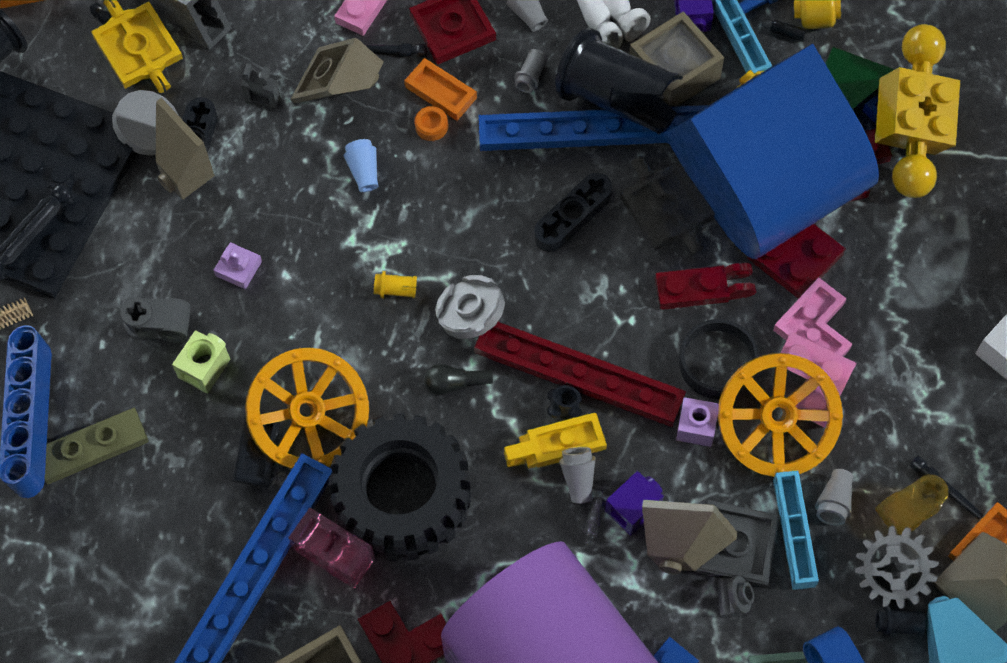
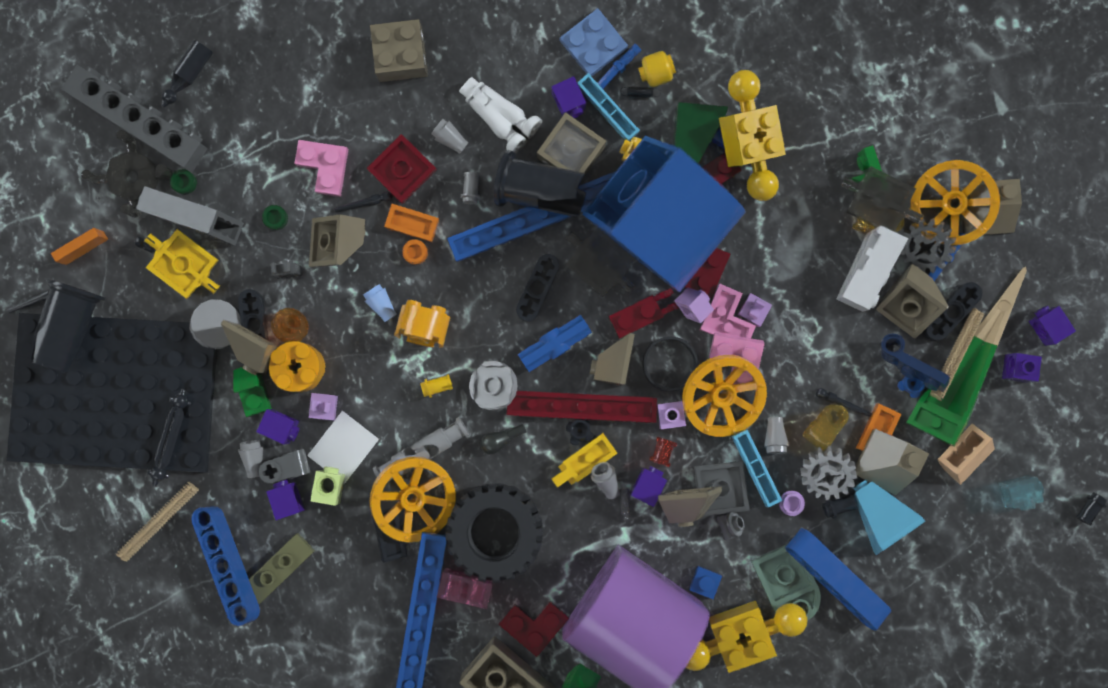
camera: 20 degrees left, 20 degrees up
(119, 287) = (251, 456): none -> light grey cone
(139, 359) = (285, 499): none -> dark purple brick
(155, 219) = (251, 392): none -> green slope
(170, 267) = (278, 426): none -> dark purple brick
(225, 202) = (285, 358): none -> light orange brick
(237, 153) = (289, 325): none -> clear orange plate
(244, 323) = (343, 445): none -> white sticker
(272, 32) = (274, 217): none -> dark green tile
(378, 352) = (441, 439): none -> light grey piece
(407, 200) = (422, 324): none -> light orange brick
(571, 282) = (554, 343): none -> blue piece
(643, 325) = (613, 362): none -> dark tan slope
(670, 465) = (663, 451): none -> clear red bush
(775, 290) = (694, 304): none -> lavender plate
(832, 596) = (791, 503): none -> lavender plate
(858, 328) = (754, 310): none -> lavender tile

